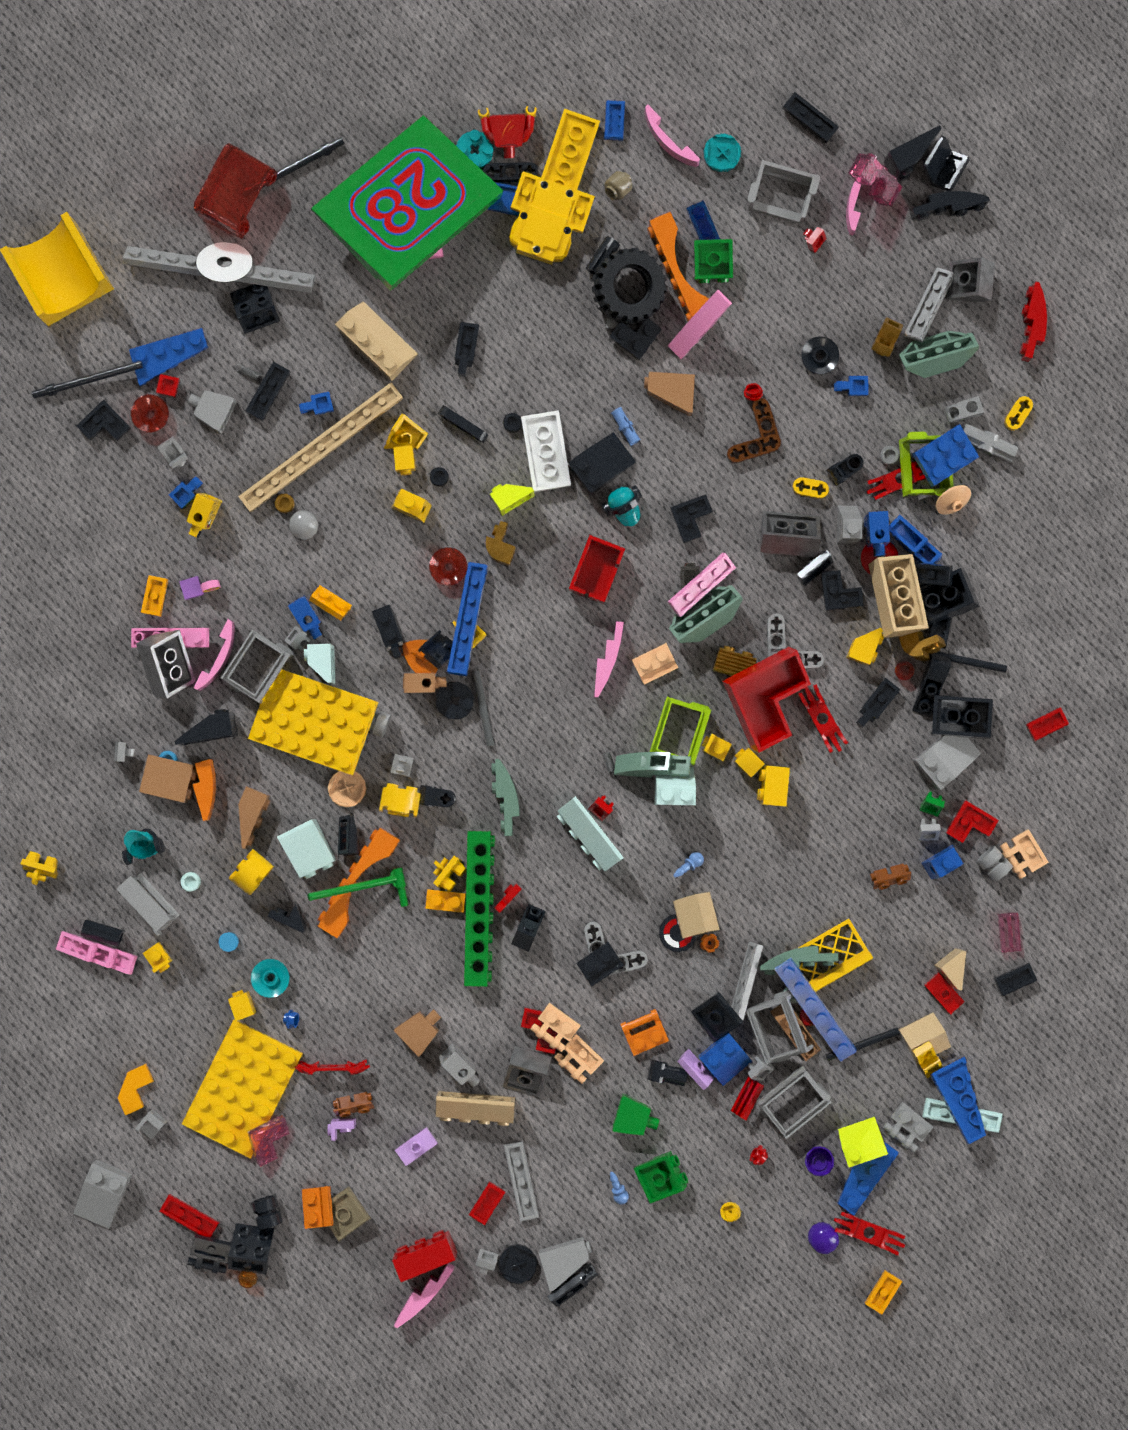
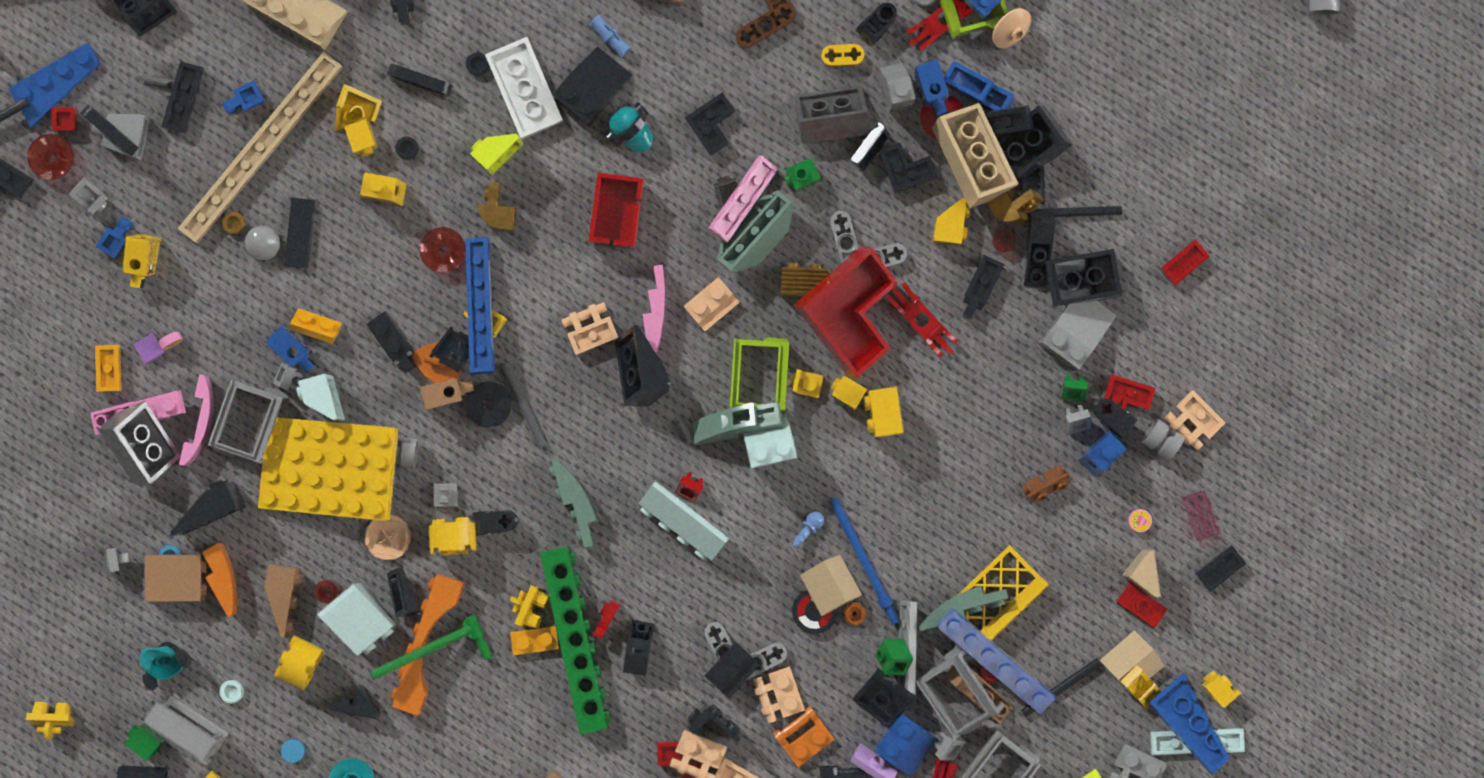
camera: 10 degrees left, 0 degrees up
(111, 904) = (144, 741): none -> green brick
(203, 404) = (109, 130): none -> black beam
(282, 819) = (320, 590): none -> clear red brick
(335, 524) = (299, 232): none -> black tile
(552, 665) = (592, 335): none -> light nougat plate
(563, 996) = (699, 718): none -> black bracket
(584, 702) = (640, 369): none -> black slope
(638, 993) = (785, 691): none -> light nougat plate
(734, 985) = (894, 656): none -> green brick
(736, 938) = (884, 601): none -> blue bar
(754, 577) = (801, 175): none -> green brick
(959, 924) = (1139, 520): none -> tile
(961, 837) = (1117, 418): none -> black piece
(991, 1077) = (1219, 689): none -> yellow brick

